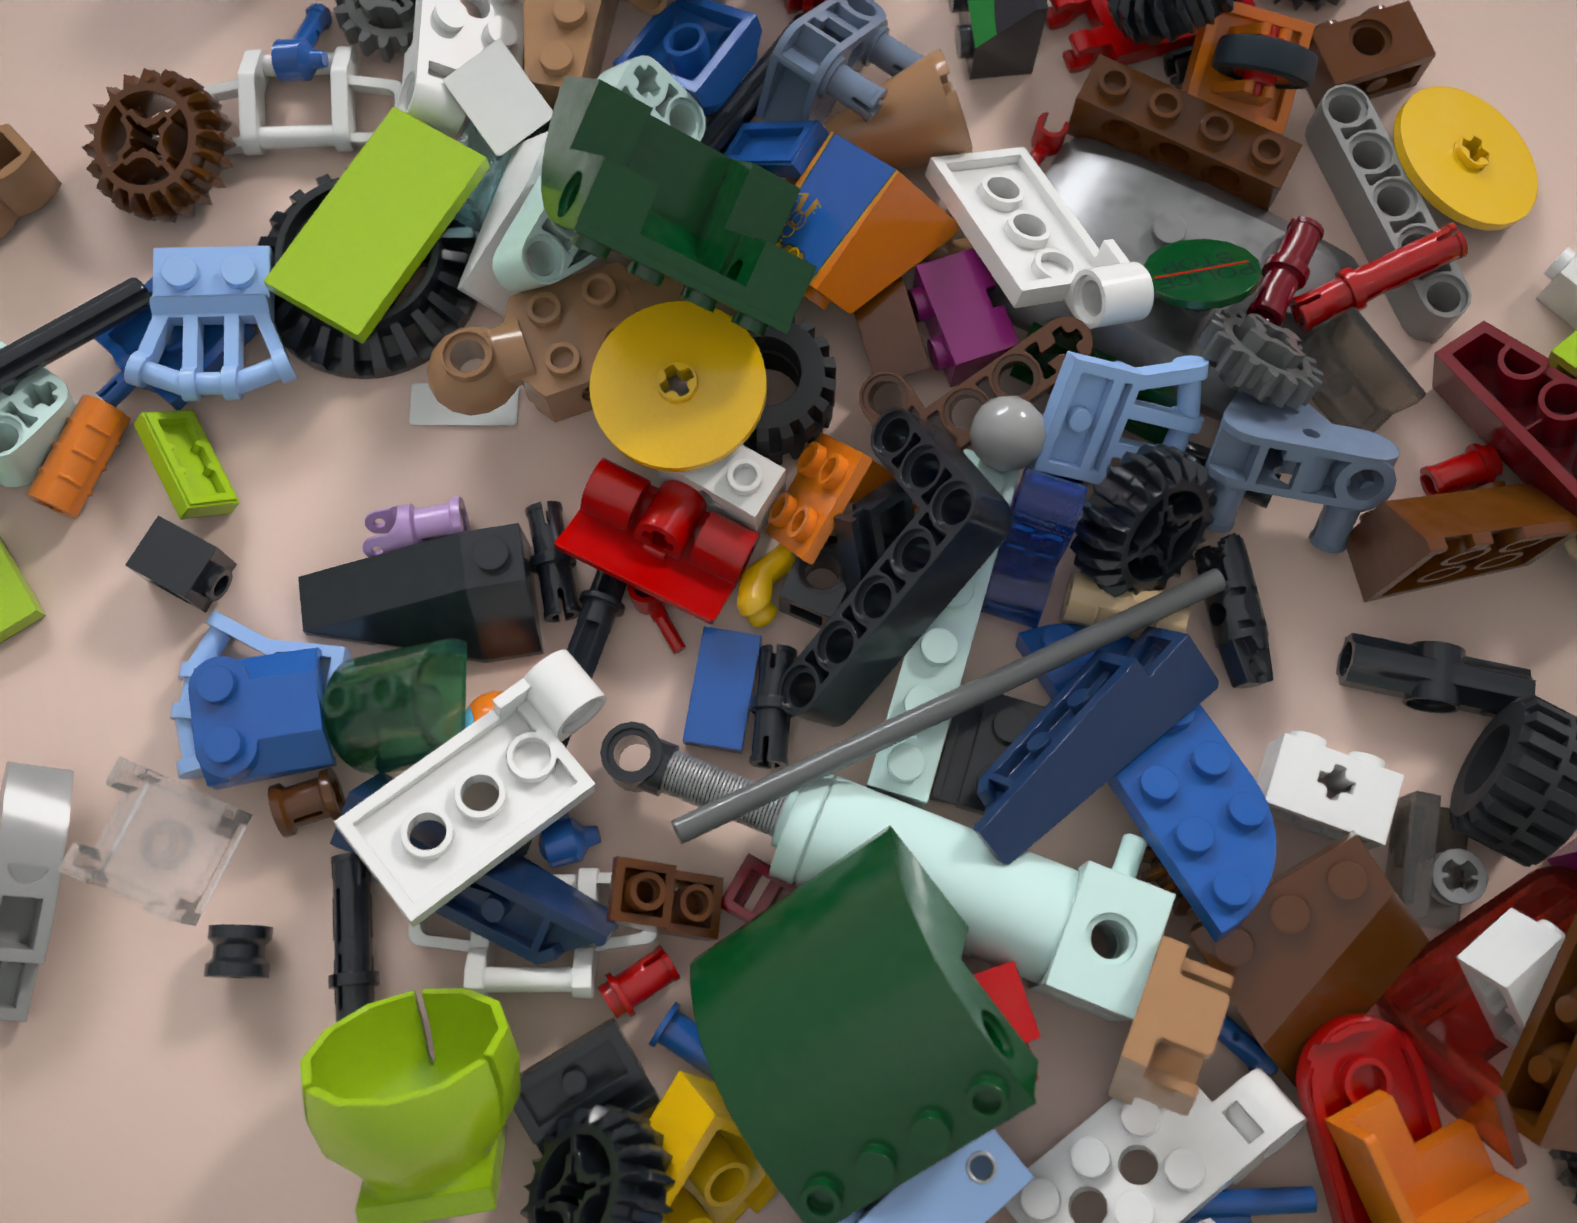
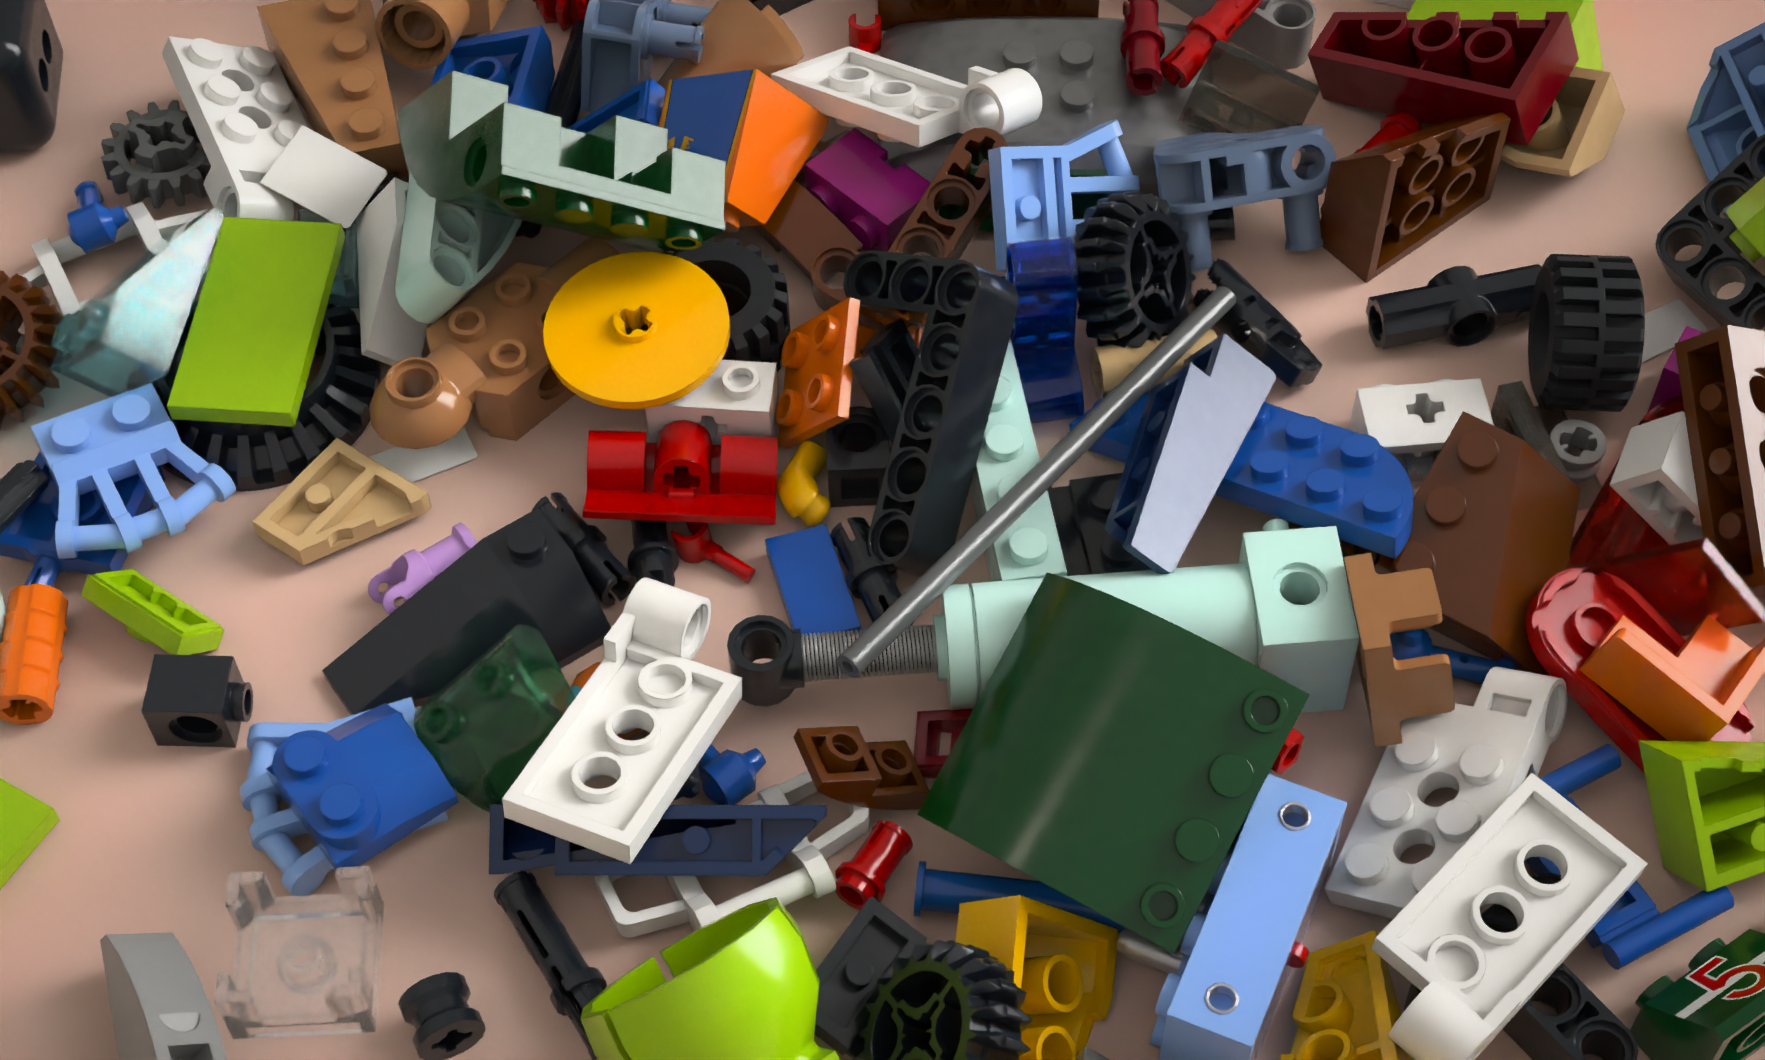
camera: 25 degrees left, 20 degrees down
(279, 174) = (136, 321): none -> clear light blue slope
(306, 802) = (443, 853): reddish brown bush -> none
(376, 425) = (337, 504): none -> tan wing
(1007, 433) = (971, 235): light grey piece -> none
(1203, 273) = (1075, 64): dark green piece -> none
(1260, 359) = (1160, 106): dark grey gear -> none

